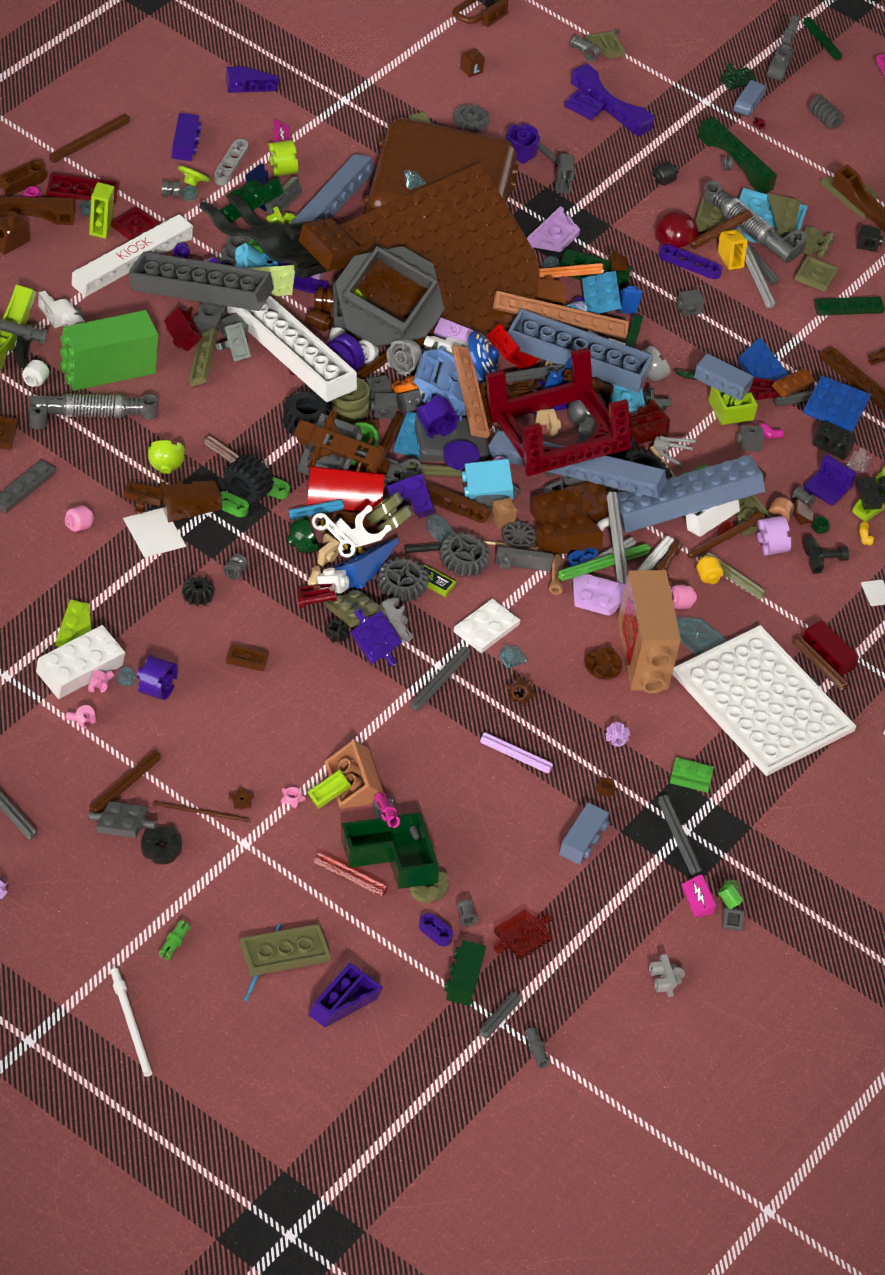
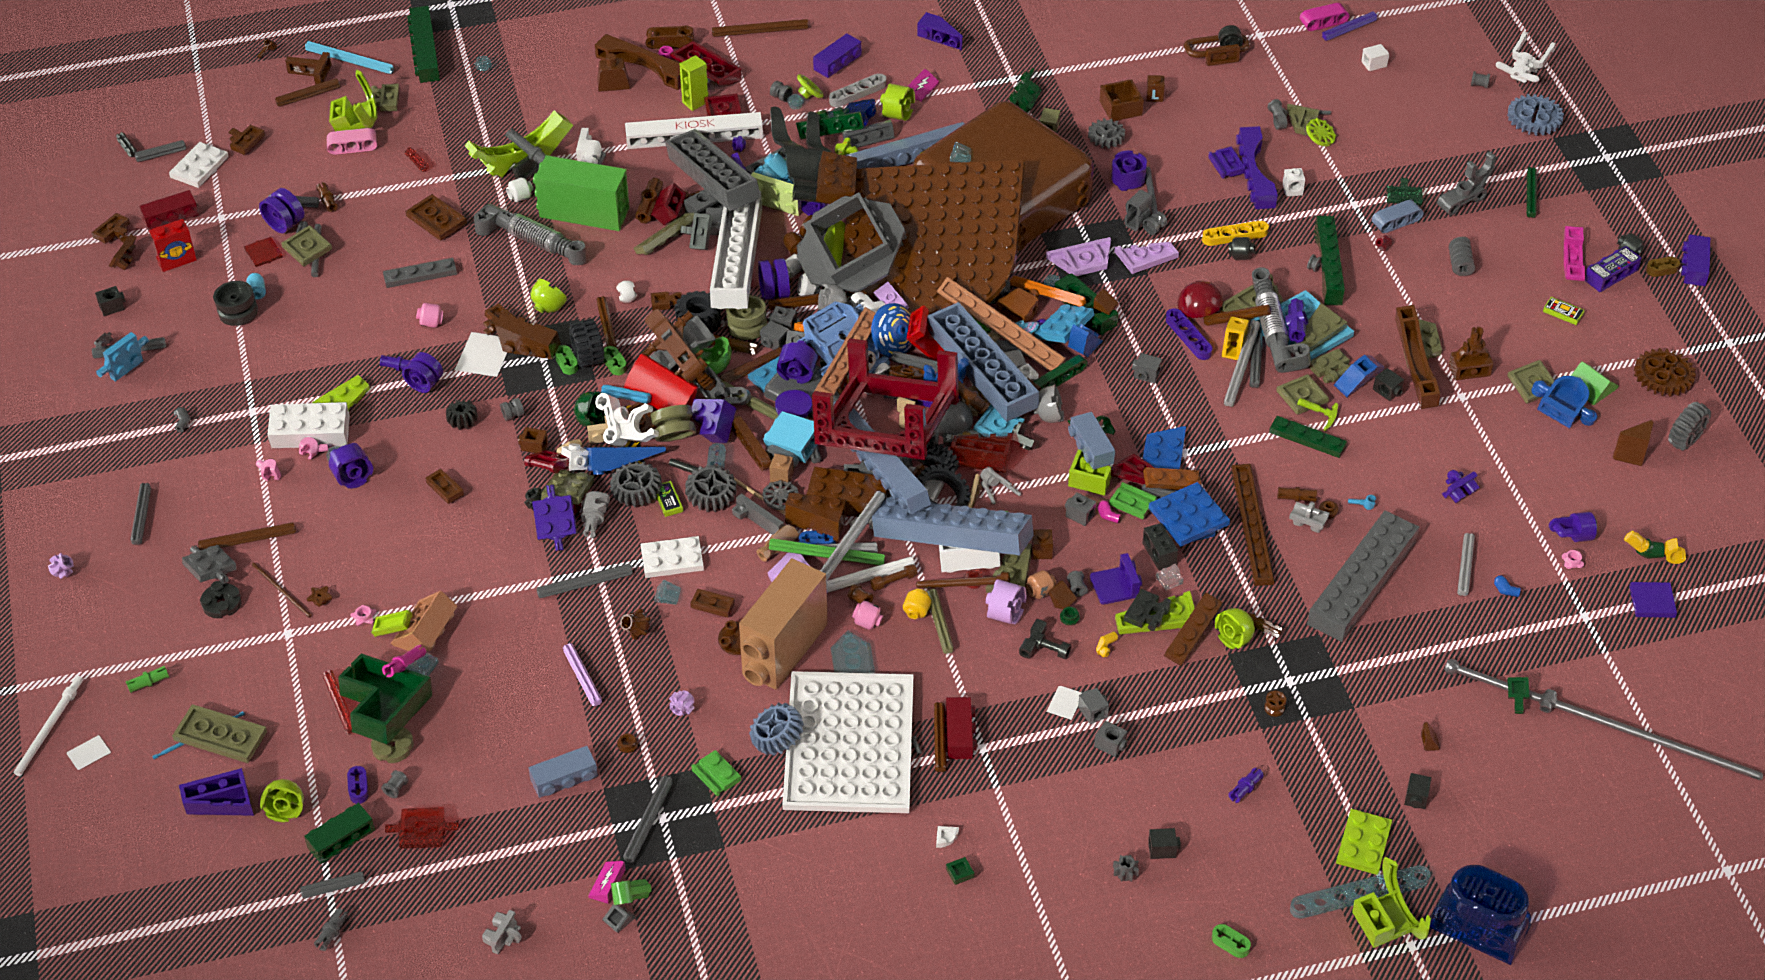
camera: 45 degrees right, 0 degrees up
(95, 573) = (392, 362): none -> dark purple pin
(132, 569) = (422, 372): none -> dark purple wheel
(165, 342) = (649, 198): none -> reddish brown piece
(186, 1025) = (88, 752): none -> white sticker
(224, 422) = (626, 291): none -> white piece
(262, 417) = (663, 300): none -> reddish brown plate
(282, 584) = (533, 440): none -> reddish brown brick
(371, 110) = (1026, 92): none -> dark green bracket
(398, 971) = (282, 800): none -> lime cylinder
(456, 84) = (1121, 100): none -> reddish brown container
(557, 646) = (712, 603): none -> reddish brown plate
(581, 179) = (1154, 223): none -> dark grey wheel
(600, 211) = (1142, 258): none -> lavender wing
(631, 50) = (1320, 132): none -> lime wheel
(643, 161) = (1255, 230): none -> yellow beam
(652, 100) = (1293, 182): none -> white brick
(698, 725) = (779, 732): none -> sand blue gear
(768, 213) = (1296, 320): none -> dark purple piece
(779, 413) = (1132, 500): none -> bright green plate
(843, 240) = (1358, 374): none -> blue slope
(847, 279) = (1331, 413): none -> lime piece

